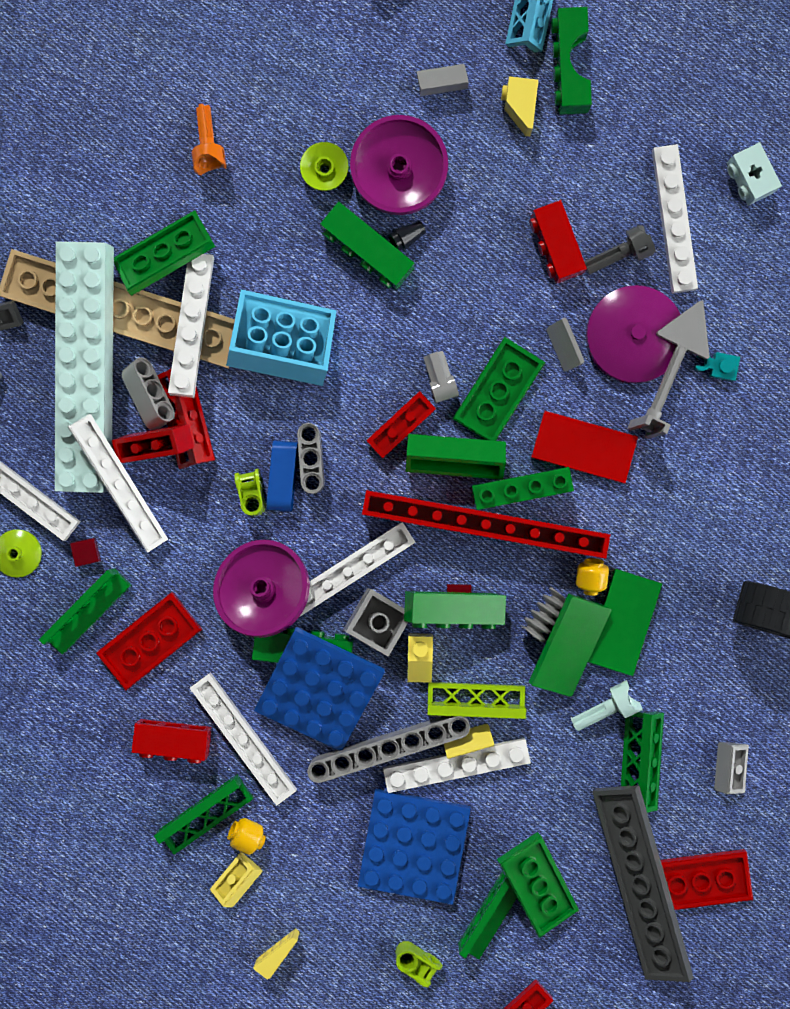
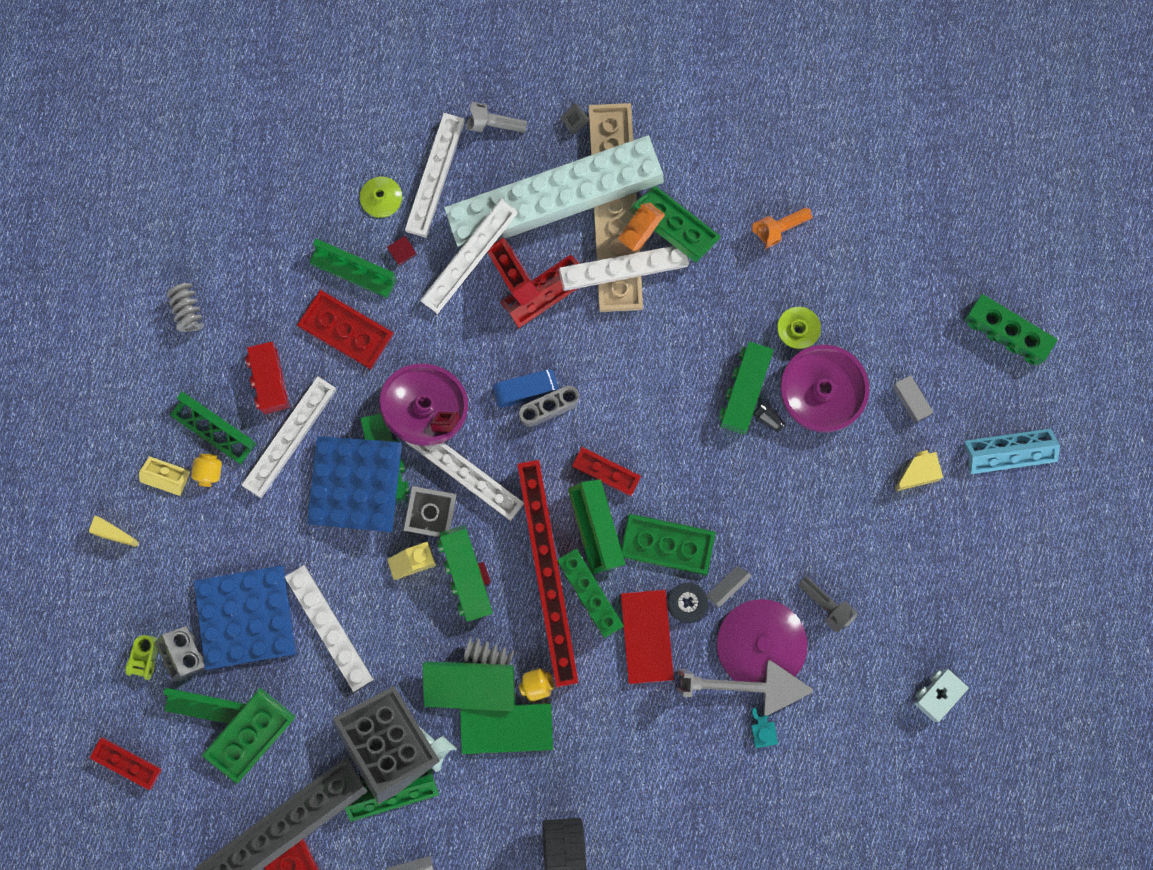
camera: 70 degrees right, 10 degrees down
(63, 803) = (183, 308): none -> light grey piece
(148, 394) = (553, 253): light grey beam -> none
(154, 288) = (641, 226): none -> orange brick
(250, 490) = (503, 366): lime piece -> none
(281, 338) = (641, 344): medium azure slope -> none
(288, 573) = (445, 421): none -> dark red tile
(379, 755) = (317, 555): light grey beam -> none
(429, 933) = (174, 655): none -> dark grey brick
(442, 382) = (655, 493): light grey piece -> none
(476, 709) = (383, 625): lime fence -> none
(477, 739) = (354, 629): light yellow slope -> none
(557, 242) = (813, 546): red brick -> none
(573, 90) = (997, 491): green arch -> none
(577, 396) = (685, 591): none -> black bush
(597, 750) = (385, 743): none -> dark grey slope
(674, 219) = (875, 642): white plate -> none

